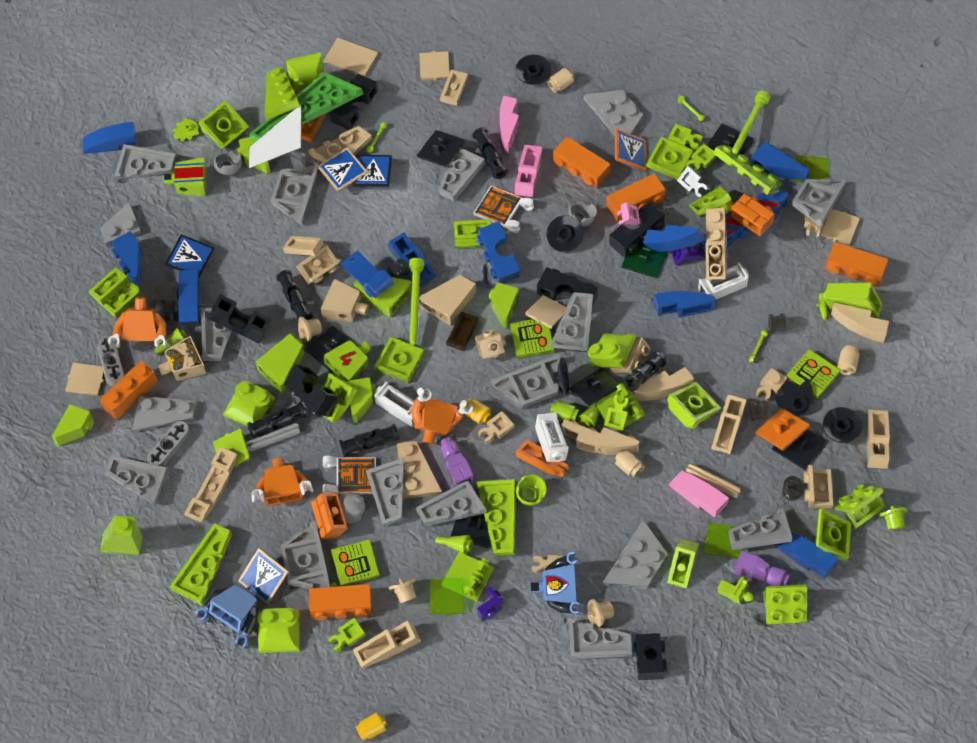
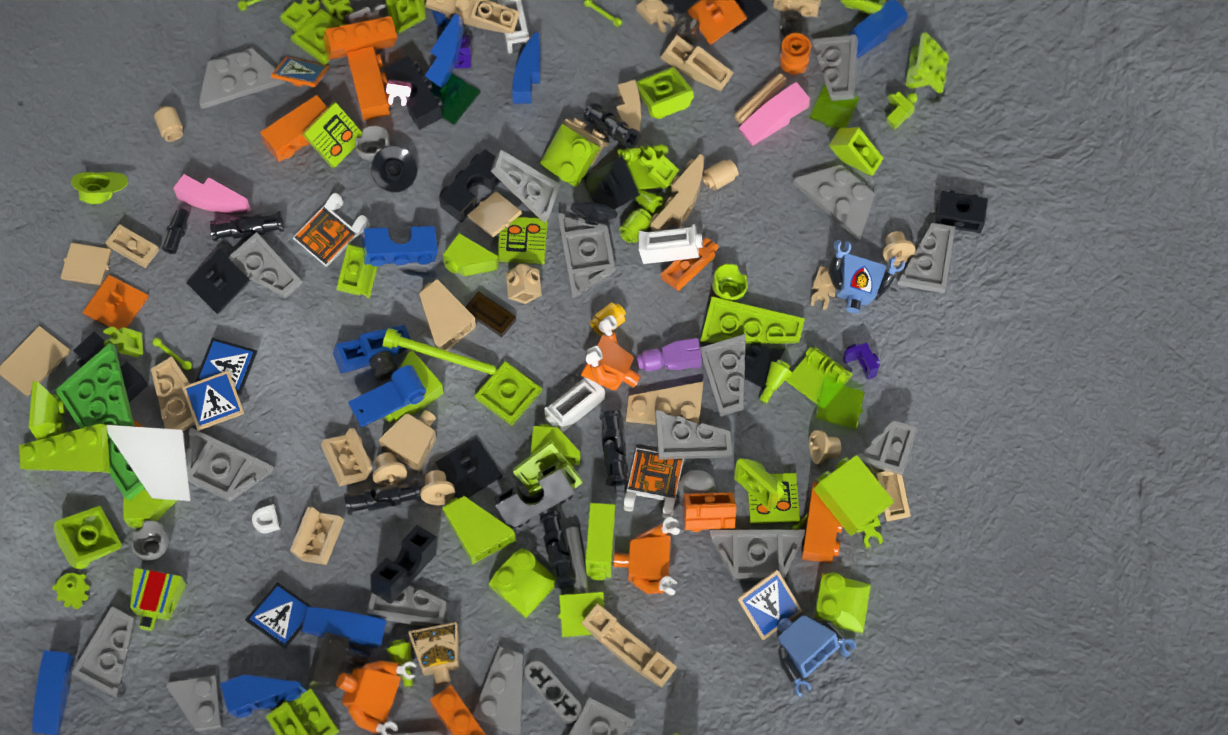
camera: 80 degrees left, 5 degrees up
(201, 568) = (741, 679): lime wing -> none
(254, 262) = (316, 536): none -> tan bracket
(262, 230) = (265, 519): none -> white tile
(287, 442) = (600, 541): none -> lime brick
(303, 245) = (312, 470): tan tile -> none
(315, 294) = (389, 470): none -> tan piece
(348, 360) = (498, 449): lime torso -> none
(357, 543) = (758, 482): none -> lime slope
(360, 611) = (852, 494): none -> lime brick
(371, 726) = (988, 519): yellow brick -> none
(376, 105) = (127, 340): none -> lime plate
(407, 92) = (115, 303): none -> orange piece
(407, 633) = (890, 448): none -> light grey wing
(472, 110) = (175, 231): none -> black axle
(494, 50) = (98, 187): none -> lime piece
(497, 426) = (634, 302): tan plate -> none
(528, 170) = (288, 189): bright pink slope -> none
(531, 64) = (141, 141): black dish -> none
(580, 184) = (333, 135): none -> lime tile
(670, 179) = (376, 33): none -> orange brick
(759, 570) = (881, 79): medium lavender piece -> none
(760, 495) = (795, 53): none -> orange wheel

